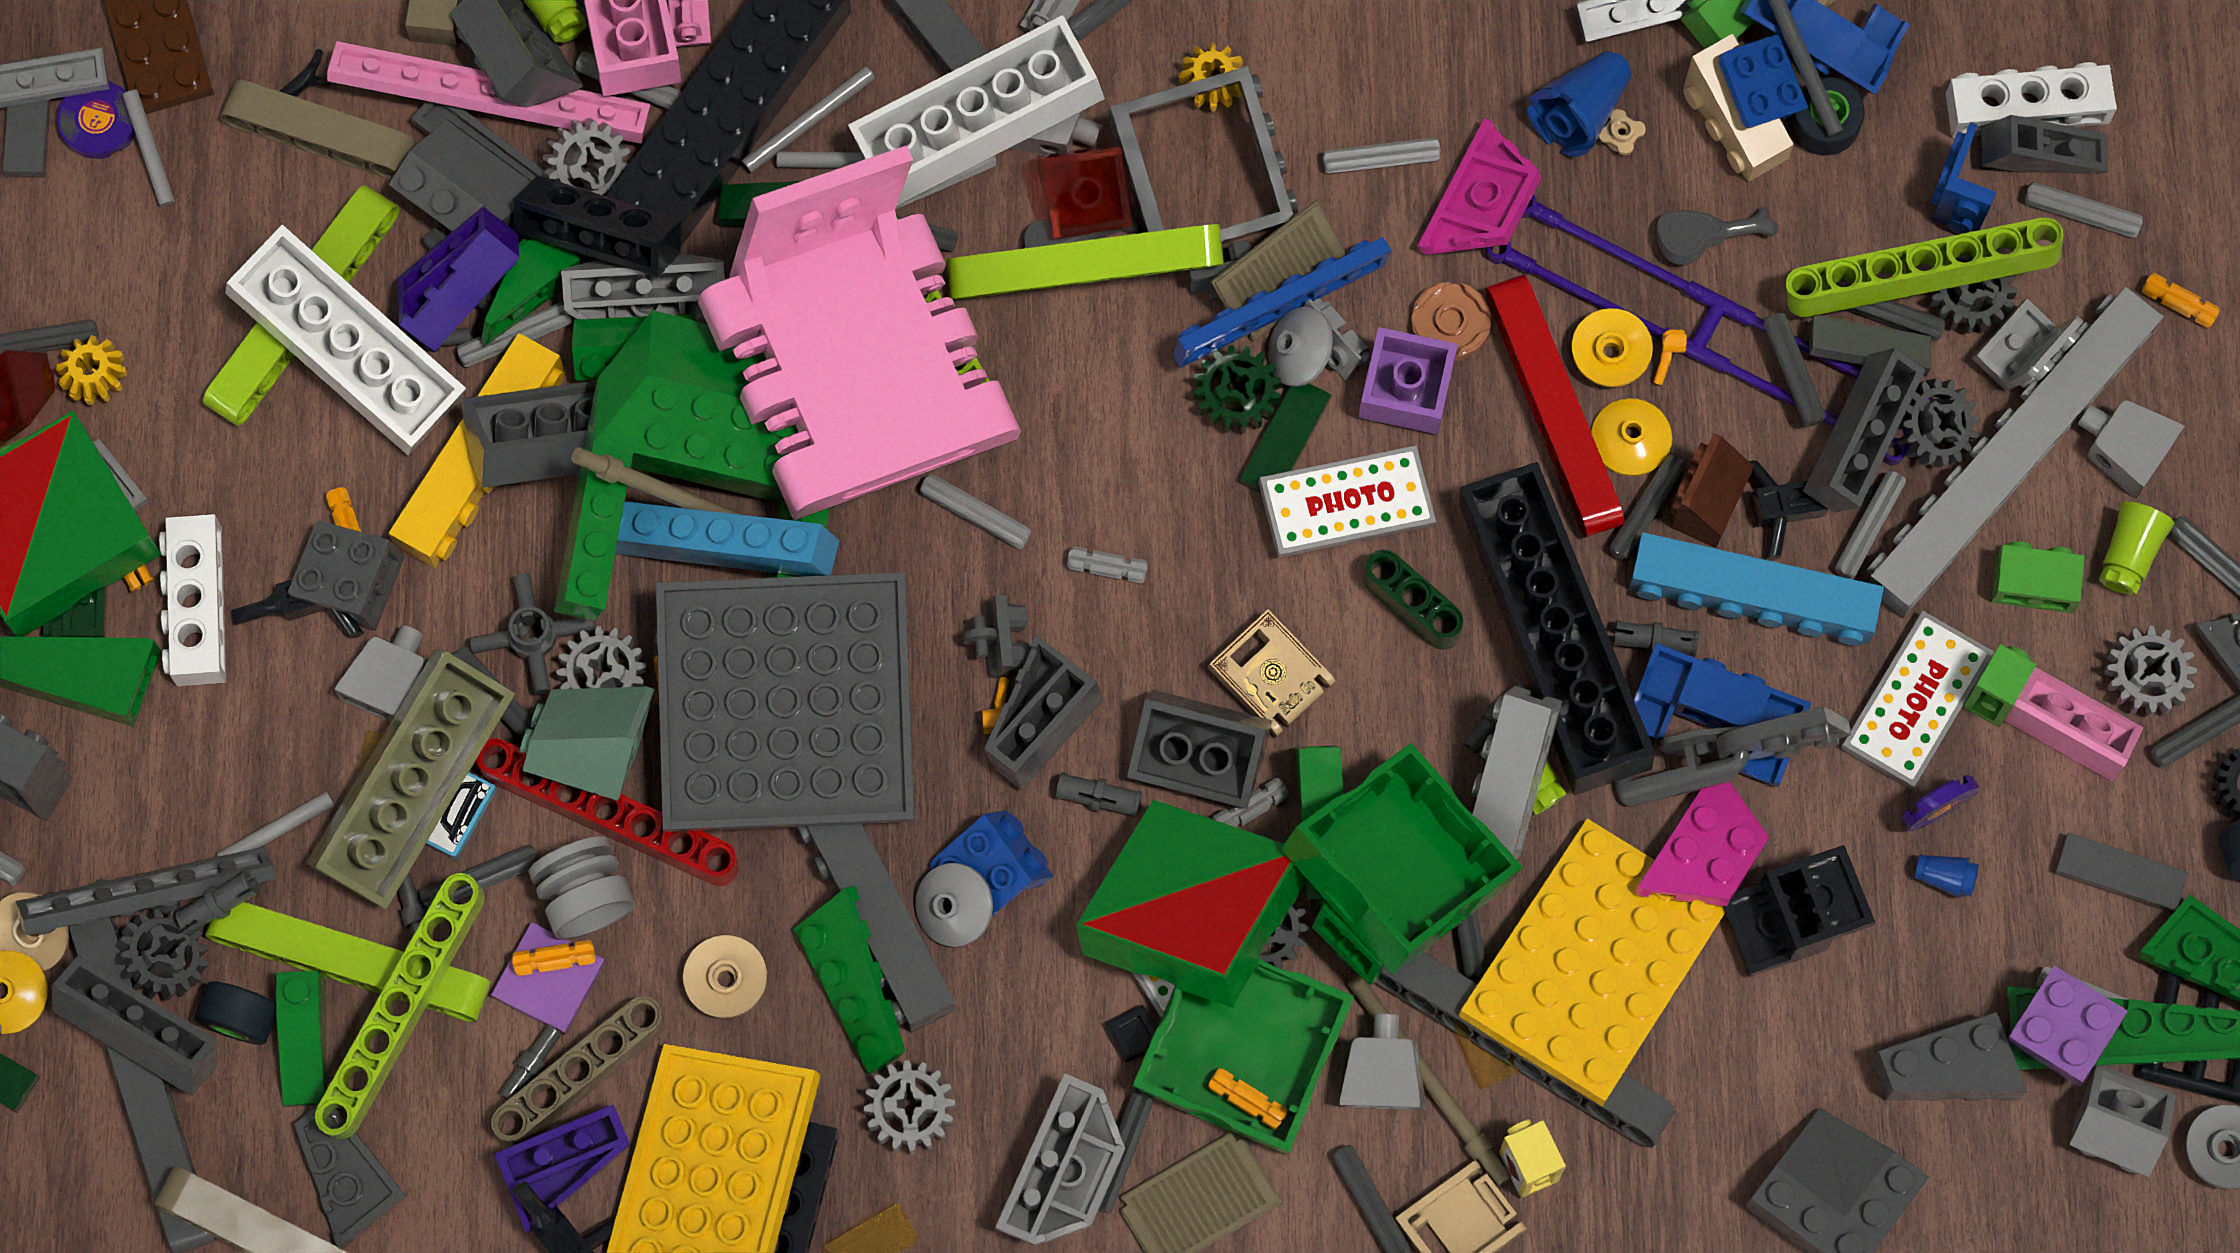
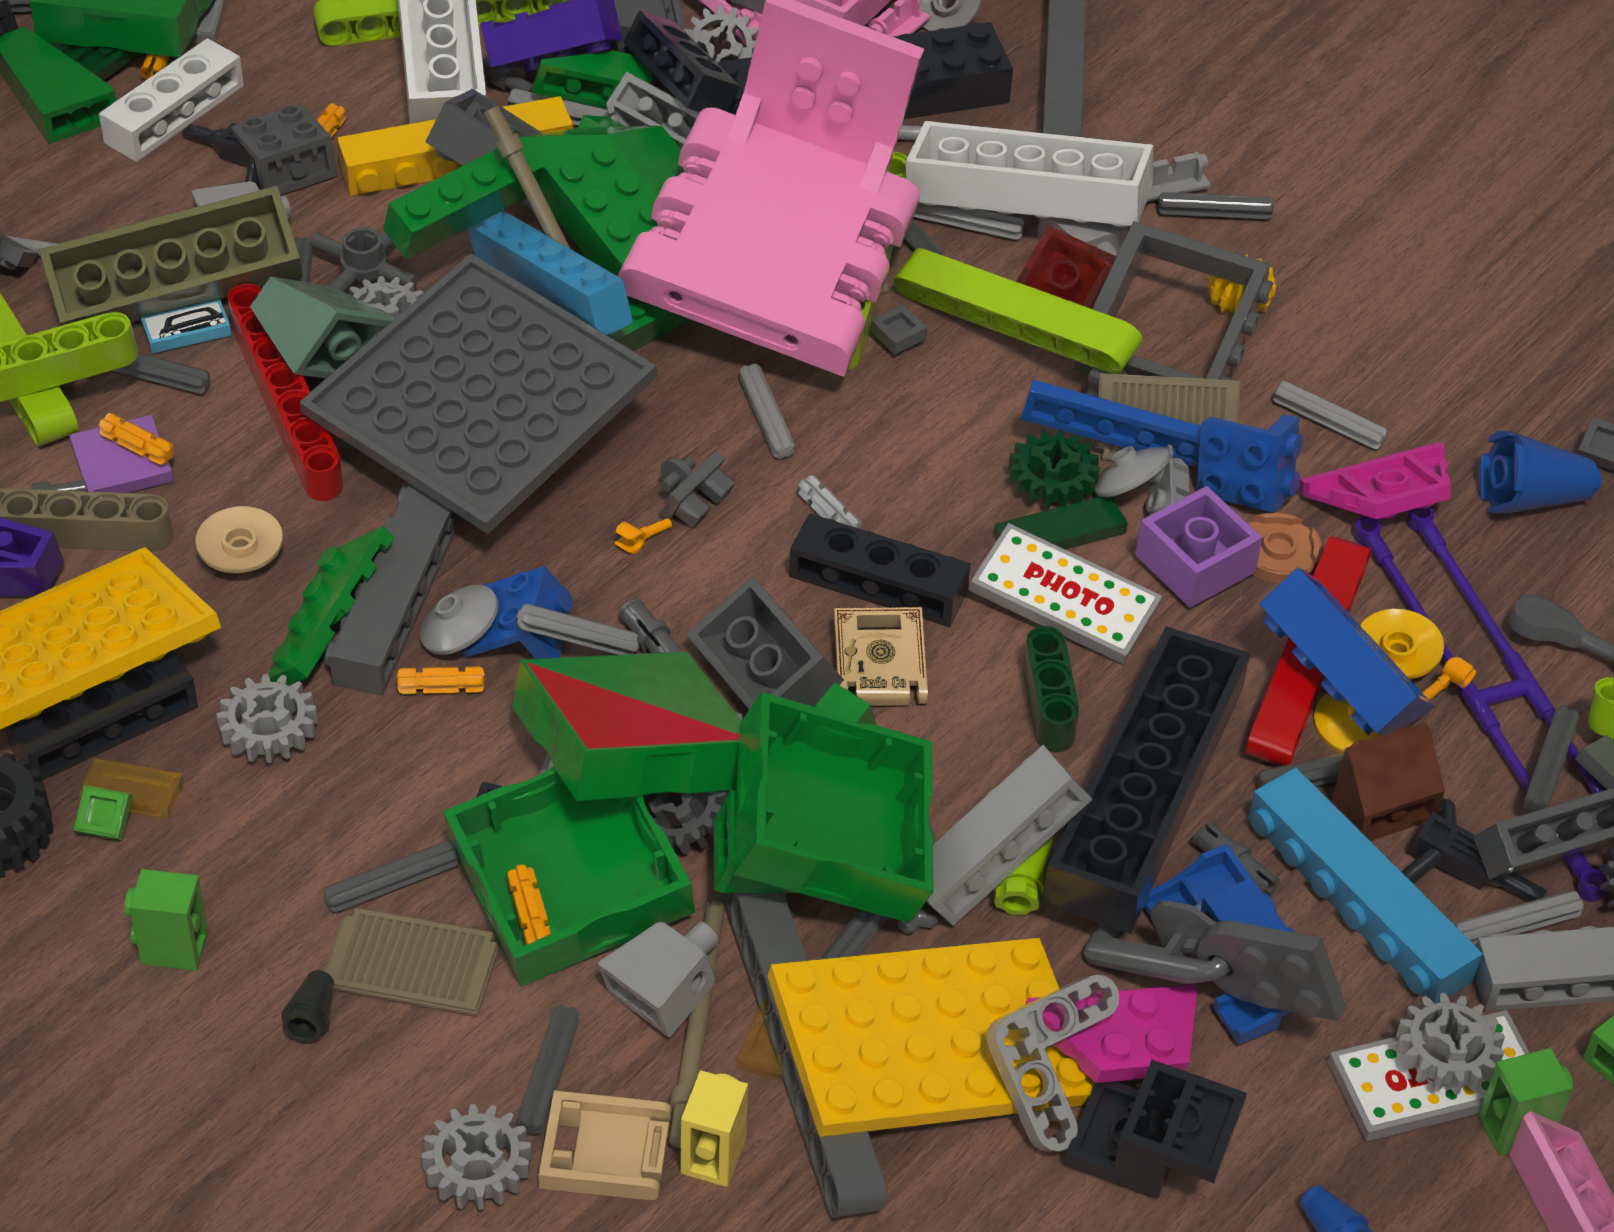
camera: 40 degrees right, 25 degrees down
(582, 887) = (205, 406): light grey wheel -> none
(989, 964) = (441, 680): none -> light orange axle
(999, 345) = (898, 329): none -> dark grey plate
(1041, 714) = (663, 549): dark grey wedge -> none
(1056, 846) = (577, 630): none -> light grey axle
(1065, 1167) = (327, 832): light grey wedge -> none
(1149, 627) = (879, 569): none -> black brick
(1384, 274) = (1250, 462): none -> blue bracket
(1601, 405) = (1344, 654): none -> blue slope
(1621, 143) = (1552, 525): tan plate -> none
(1678, 916) = (1033, 1040): none -> light grey beam
(1906, 666) = (1449, 1043): none -> light grey gear
(1940, 802) = (1378, 1149): dark purple tile -> none

